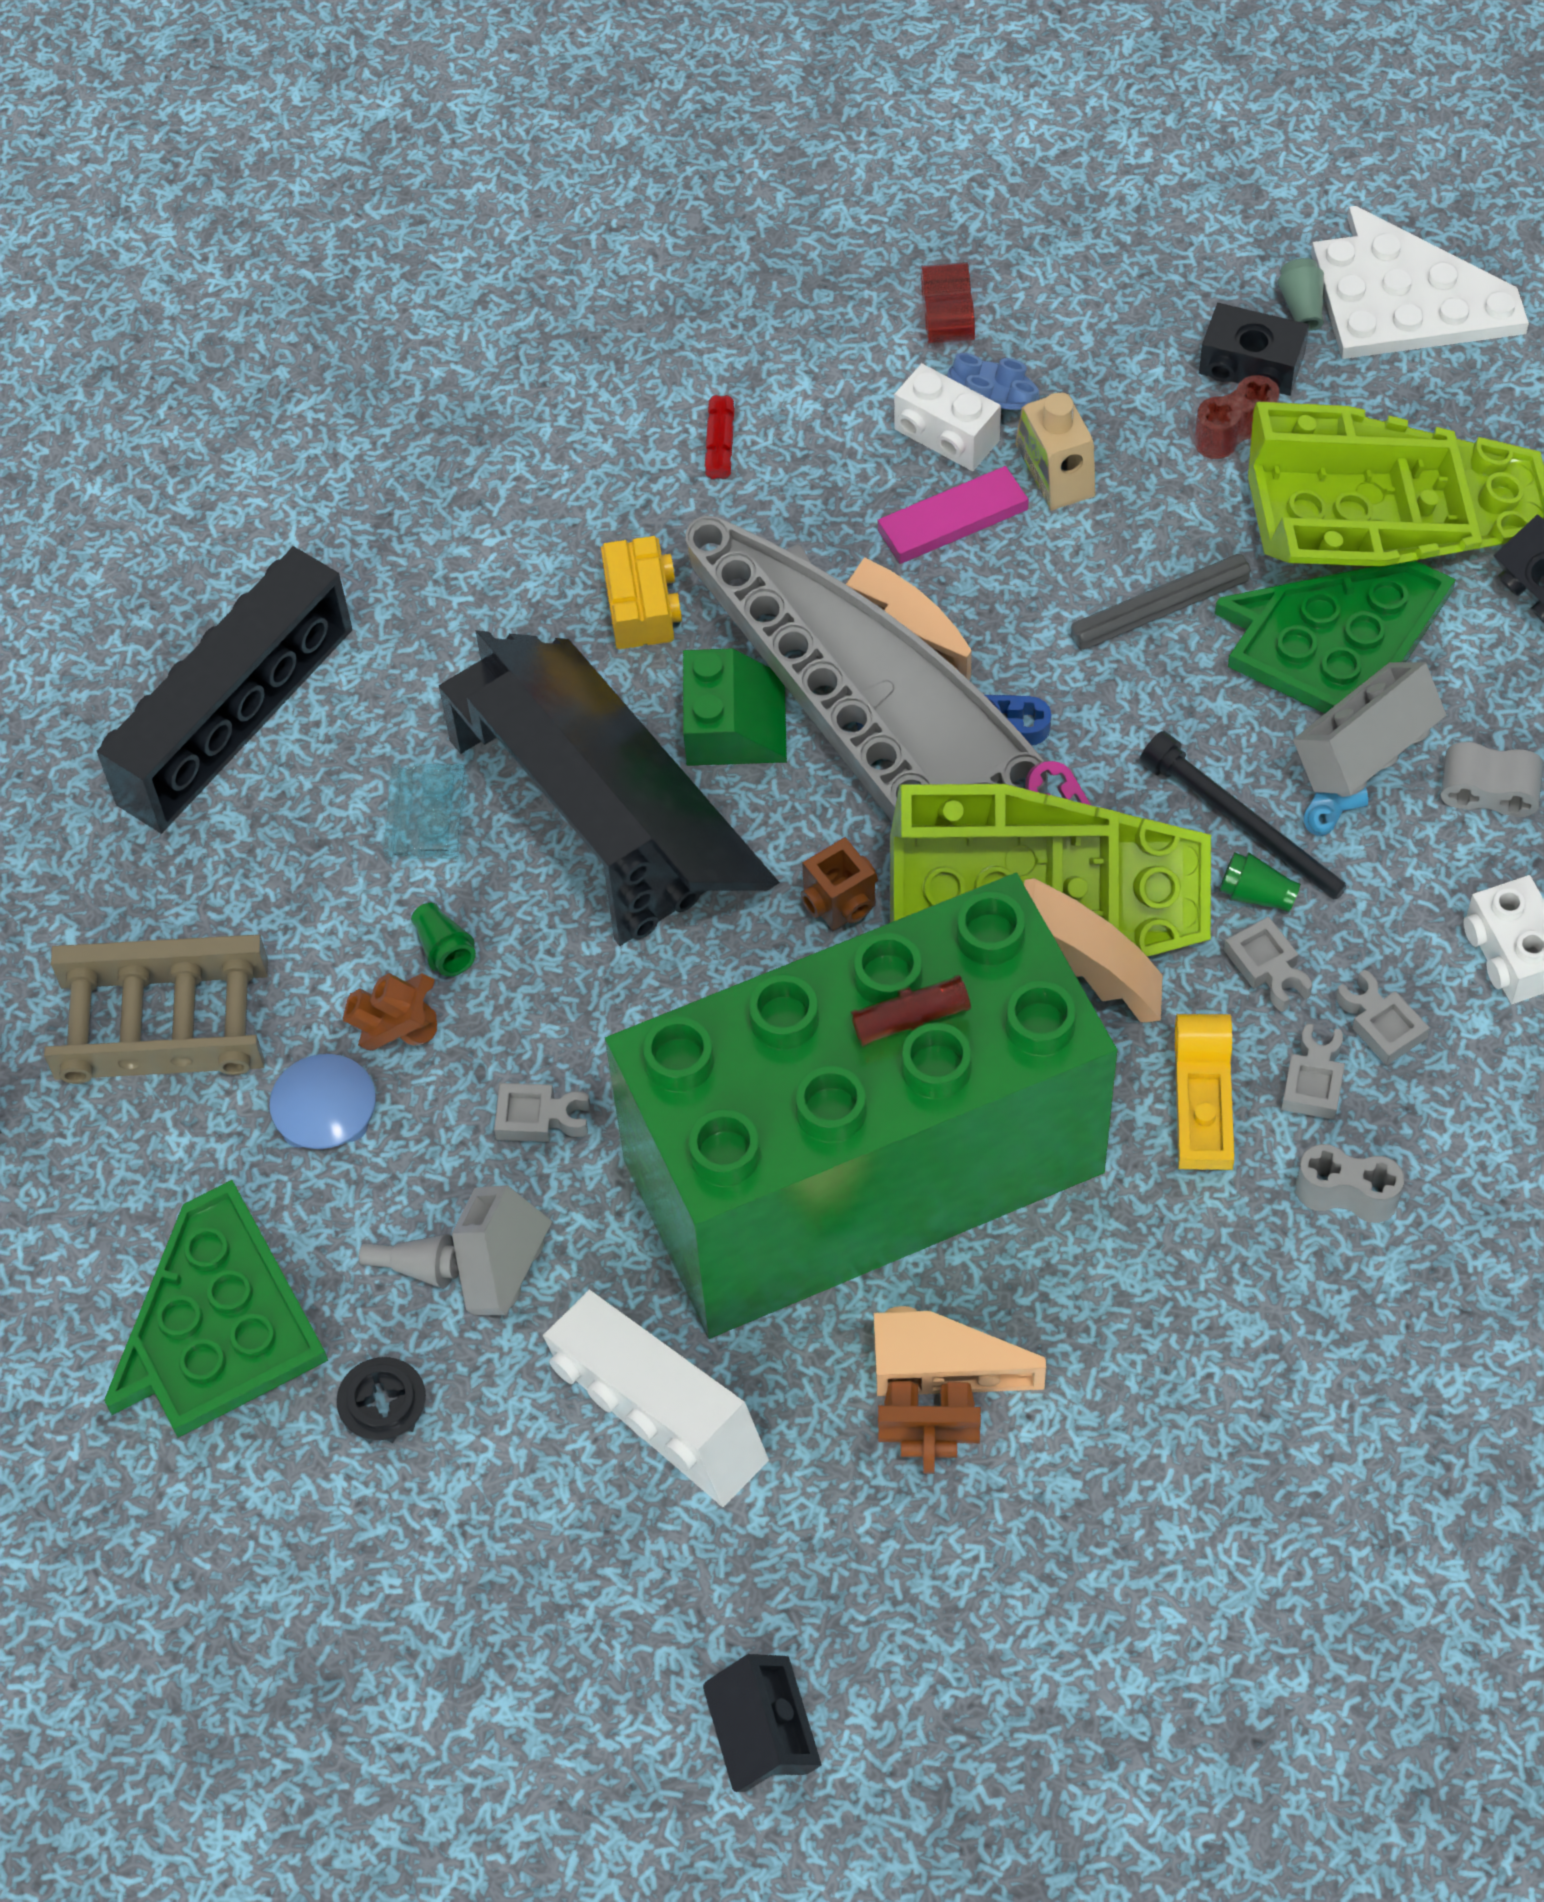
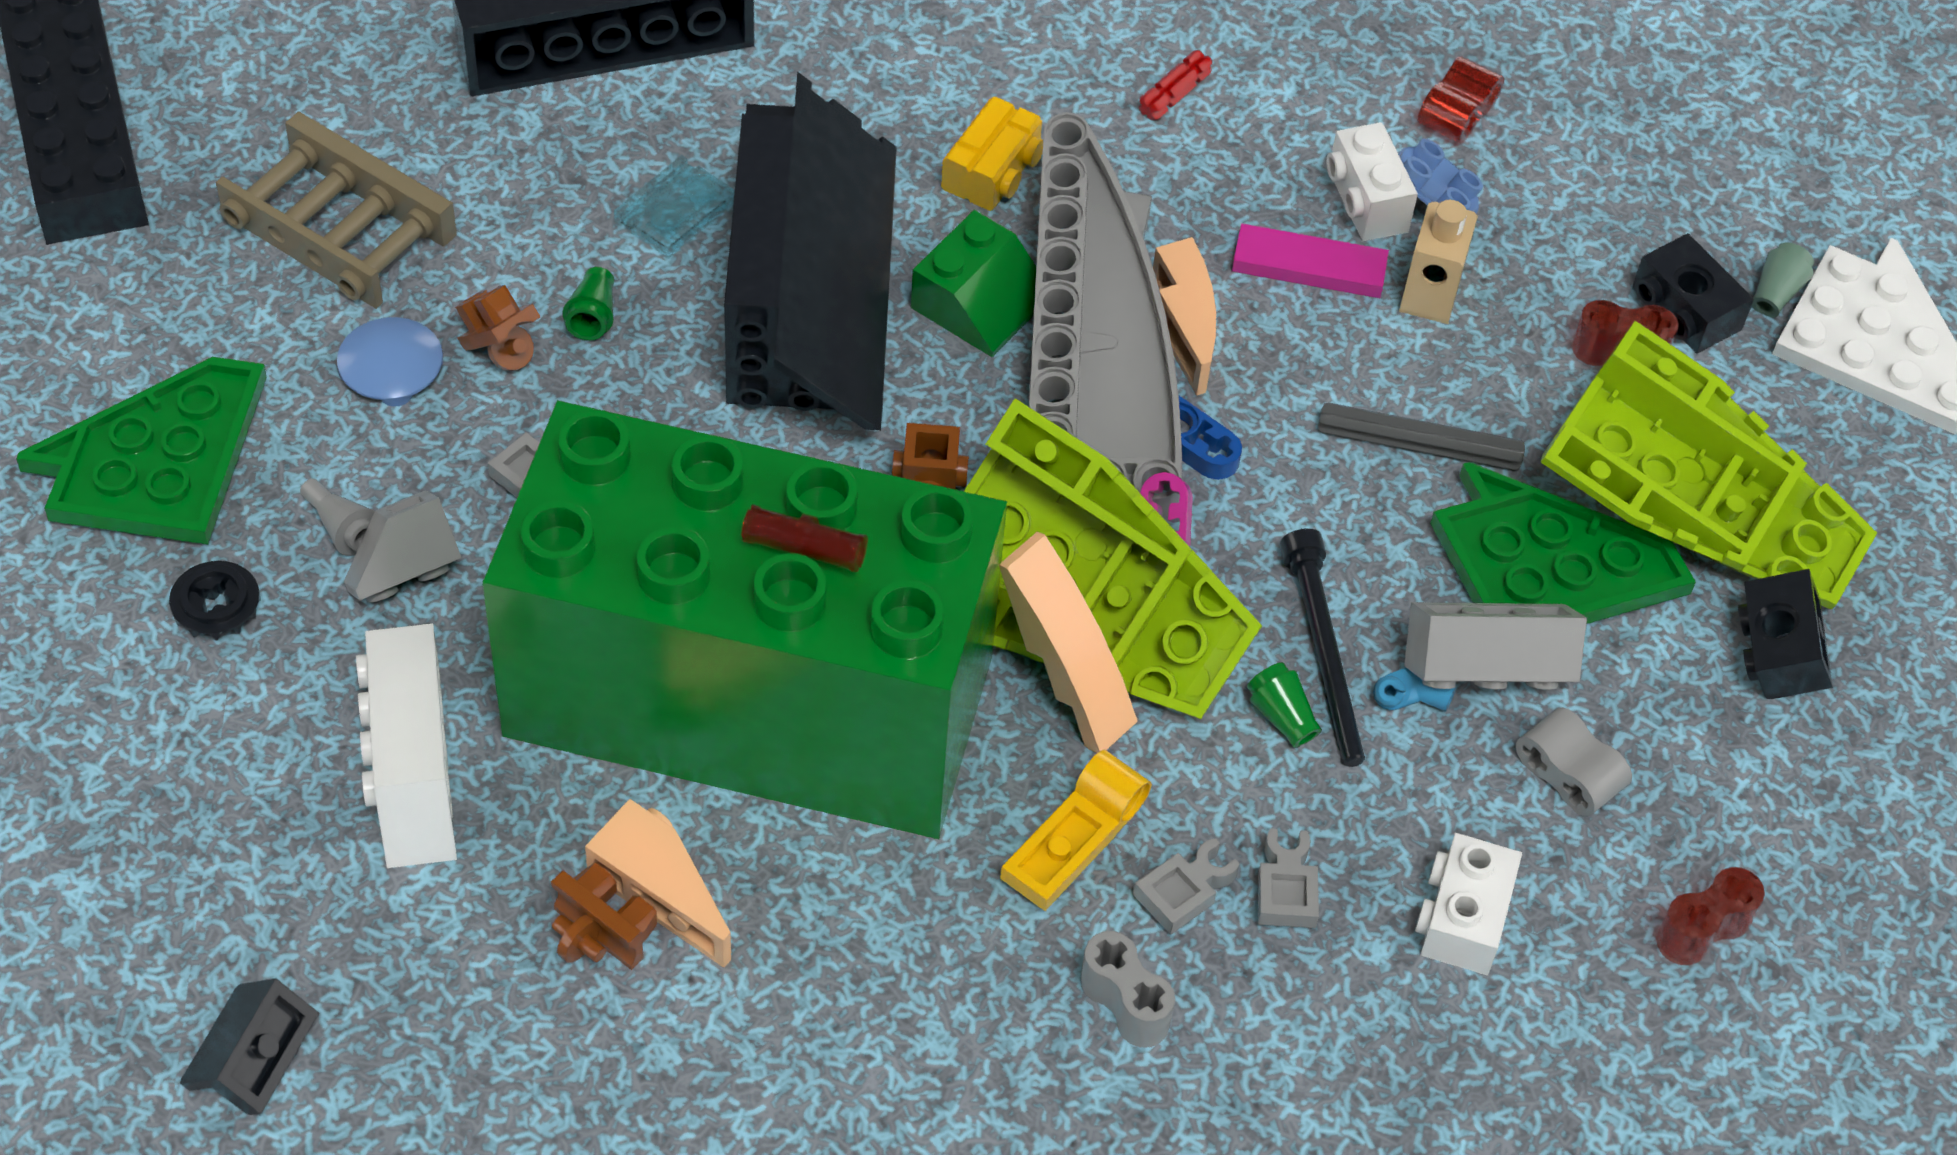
camera: 30 degrees right, 5 degrees down
(1268, 957) = (1234, 768): light grey plate -> none

